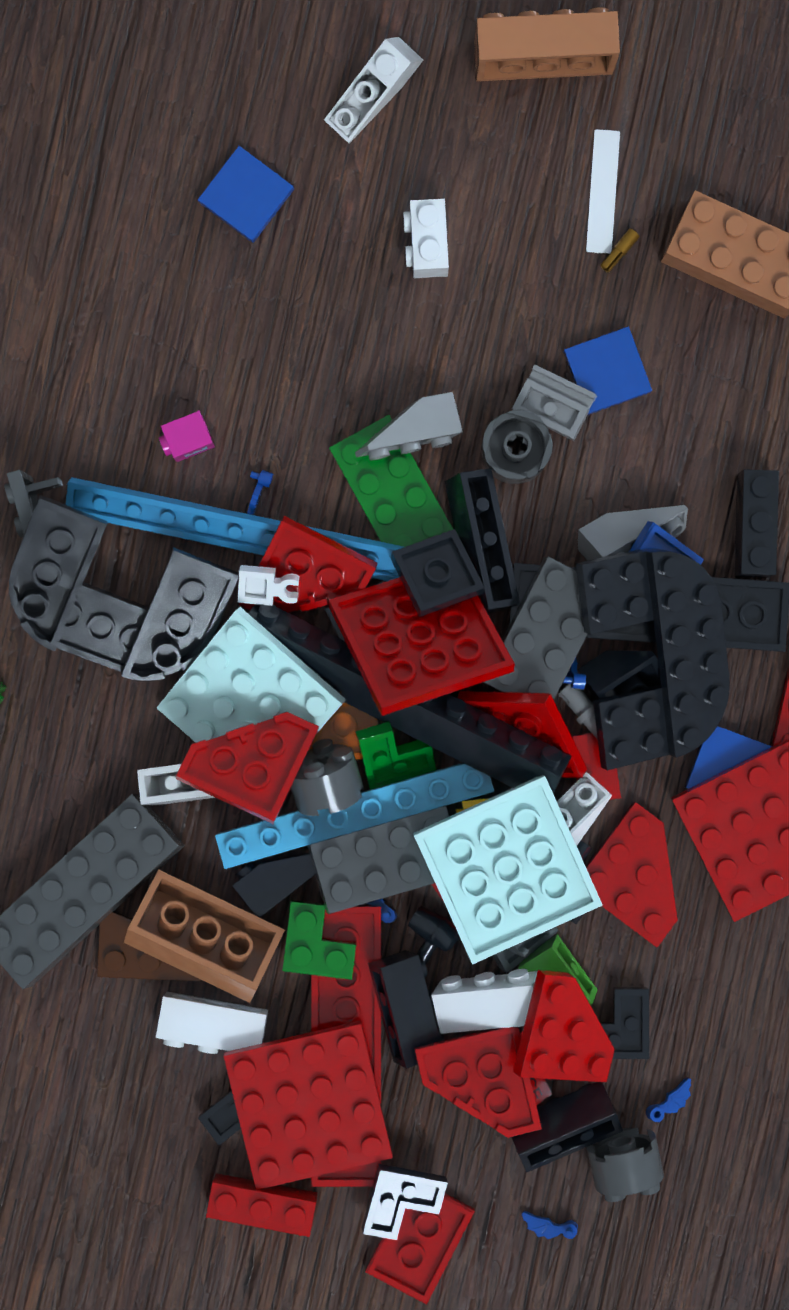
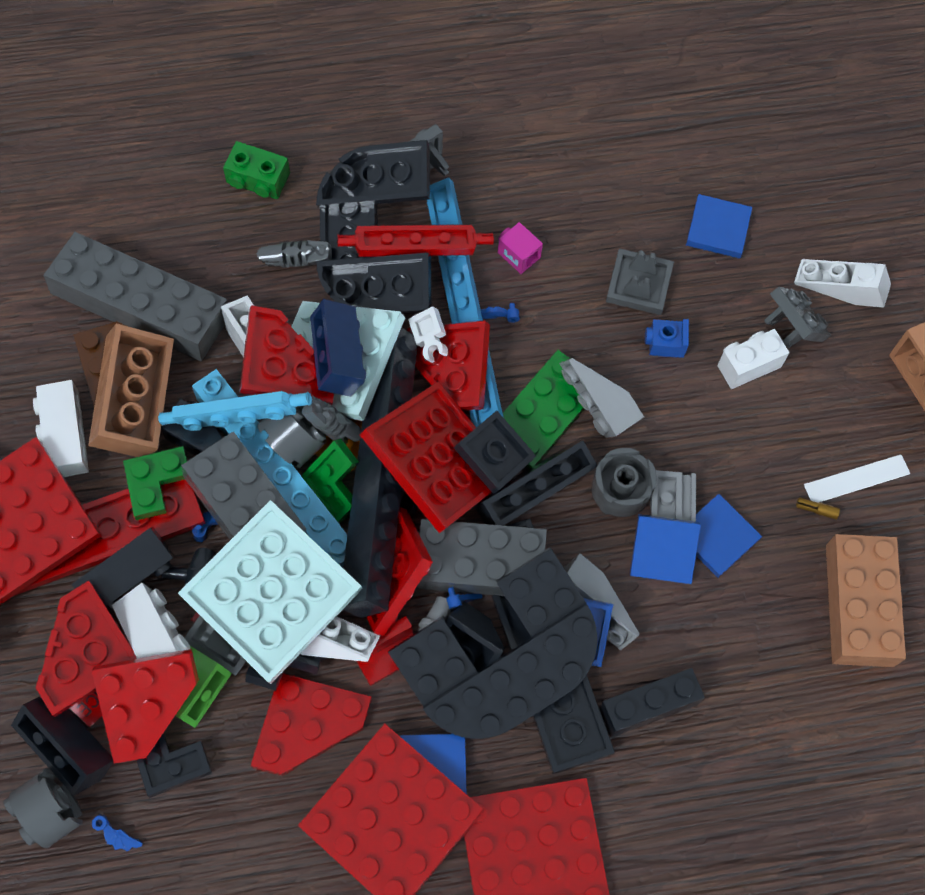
camera: 65 degrees right, 20 degrees down
(98, 694) = (295, 253): none -> dark grey hinge
(146, 556) = (413, 239): none -> red plate
(259, 698) = (337, 348): none -> dark blue brick
(282, 318) = (640, 281): none -> dark grey plate
(294, 825) = (233, 410): none -> medium azure plate
(335, 735) = (331, 421): none -> dark grey hinge
(372, 307) = (668, 338): none -> blue brick
(401, 162) = (797, 309): none -> dark grey plate
(604, 436) = (665, 549): none -> blue tile

